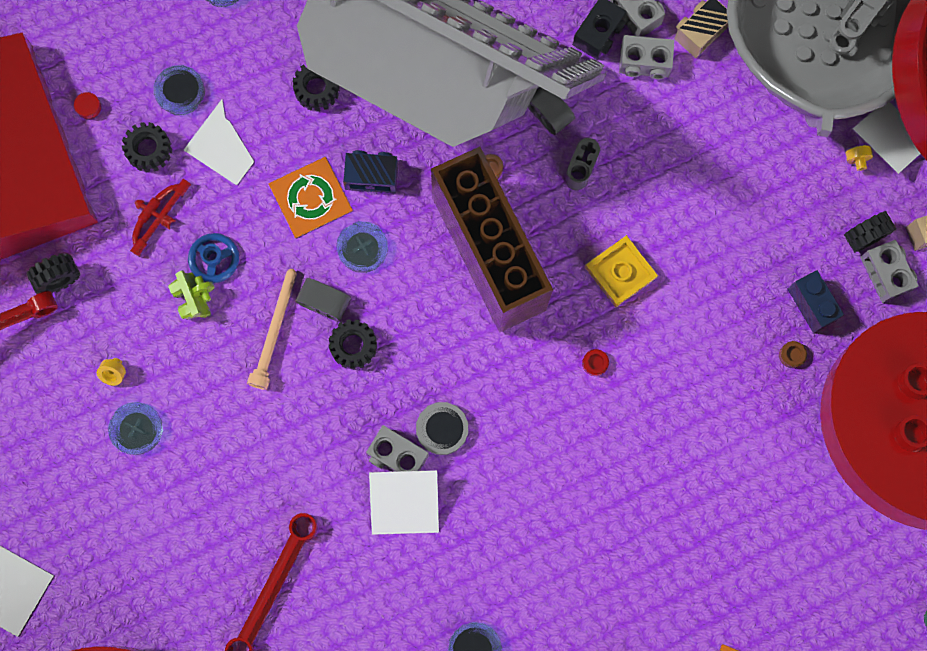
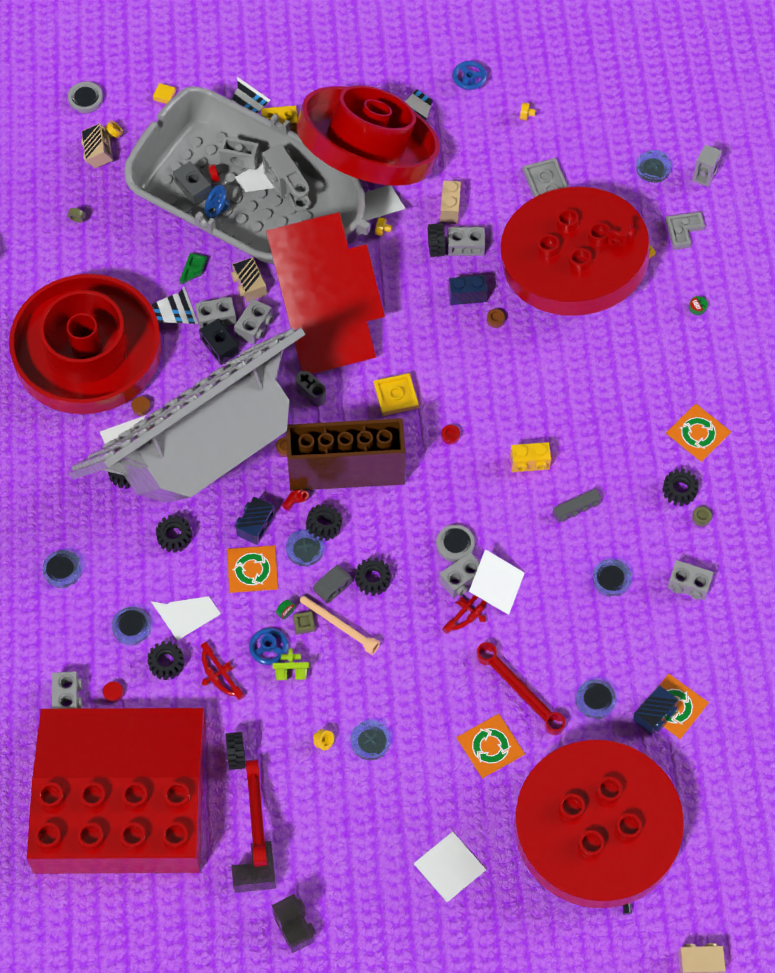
camera: 65 degrees left, 15 degrees down
(59, 47) = (61, 695): none -> light grey brick
(183, 579) = (490, 746): none -> orange sticker
(260, 286) = (303, 622): none -> olive tile
(266, 257) = (285, 609): none -> green tile
(354, 491) = (470, 618): none -> red piece
(414, 248) = (320, 530): none -> black tyre
(424, 206) = (295, 497): none -> red arm
(560, 565) = (577, 505): none -> dark grey piece
(601, 477) = (530, 457): none -> yellow brick
(714, 120) = (326, 292): none -> red slope

